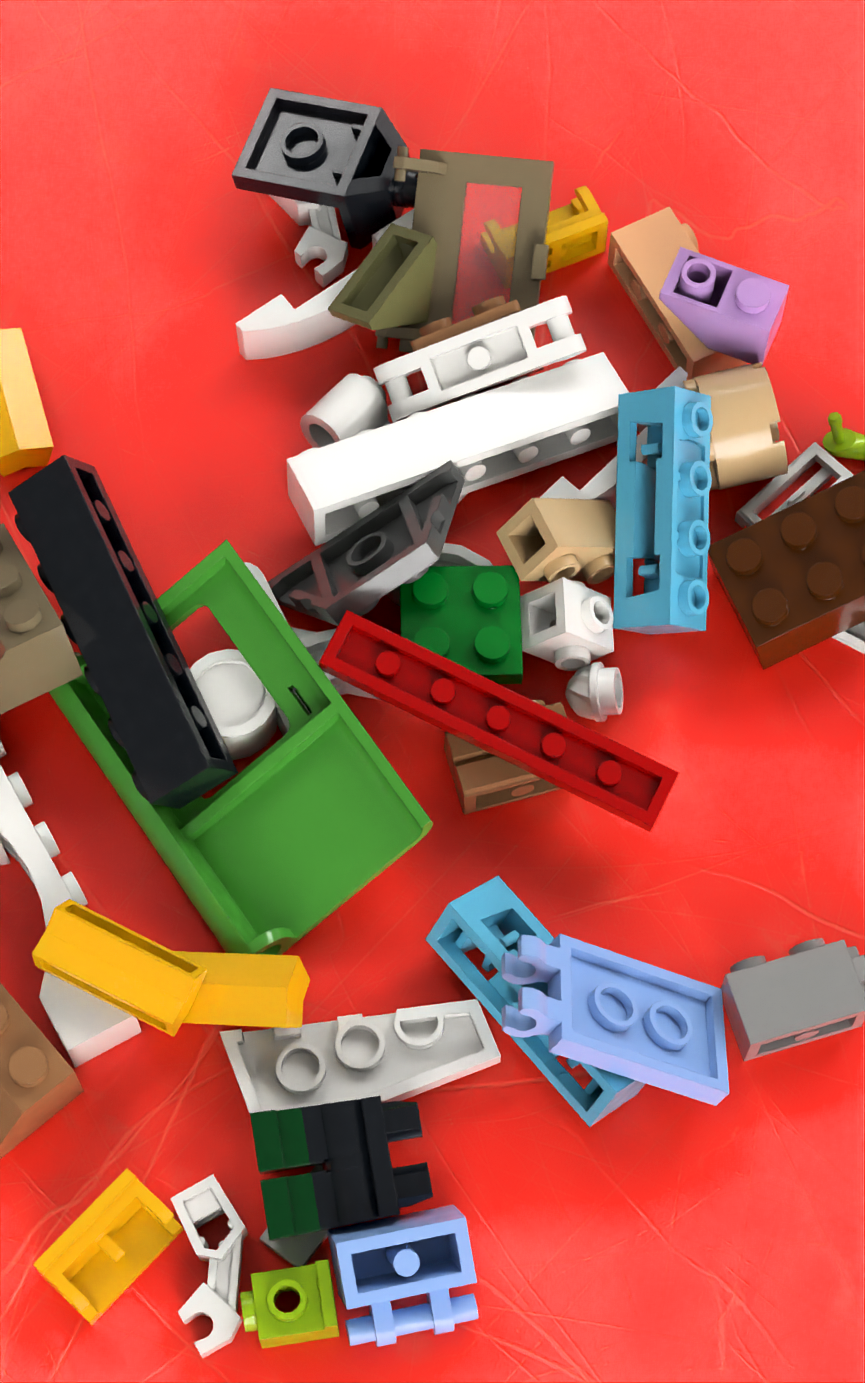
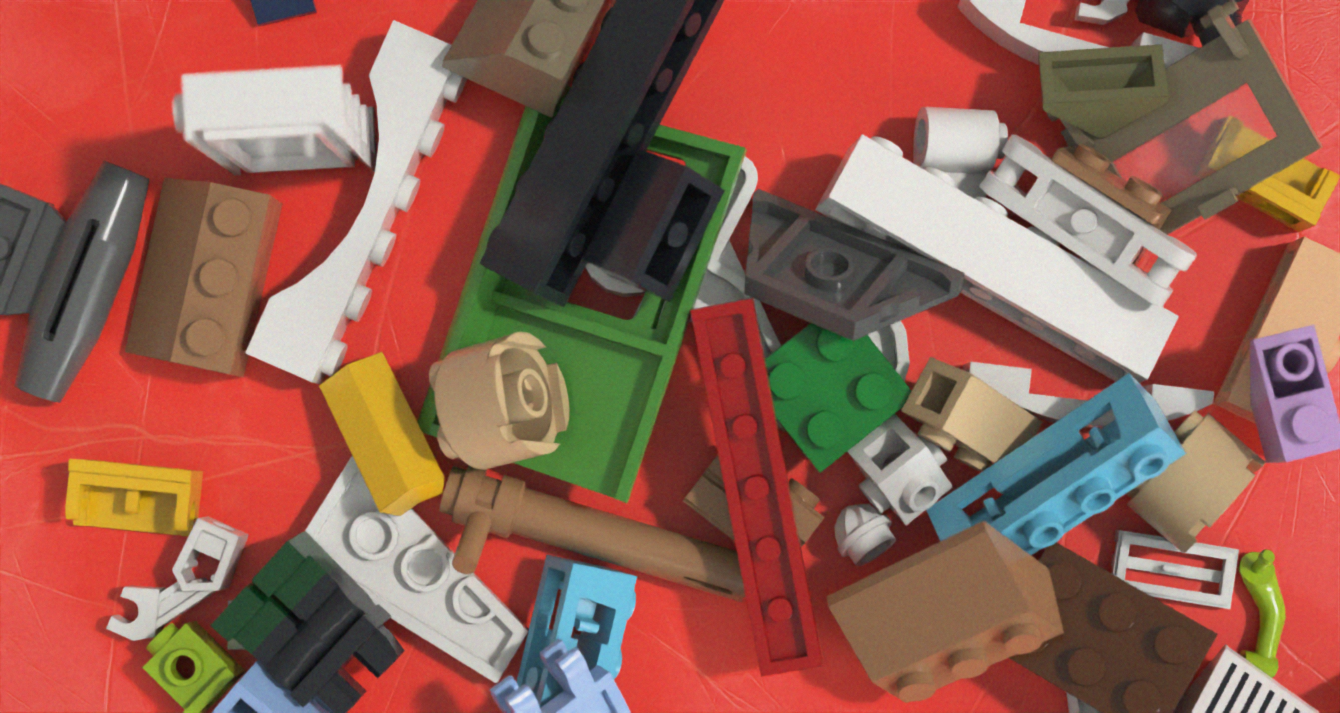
camera: 55 degrees right, 20 degrees up
(119, 966) = (334, 343): yellow piece -> none
(230, 646) = (654, 224): none -> black brick
(272, 866) = (499, 402): none -> tan brick
(365, 941) = (510, 508): none -> medium nougat cylinder
(705, 651) = (947, 612): none -> medium nougat slope

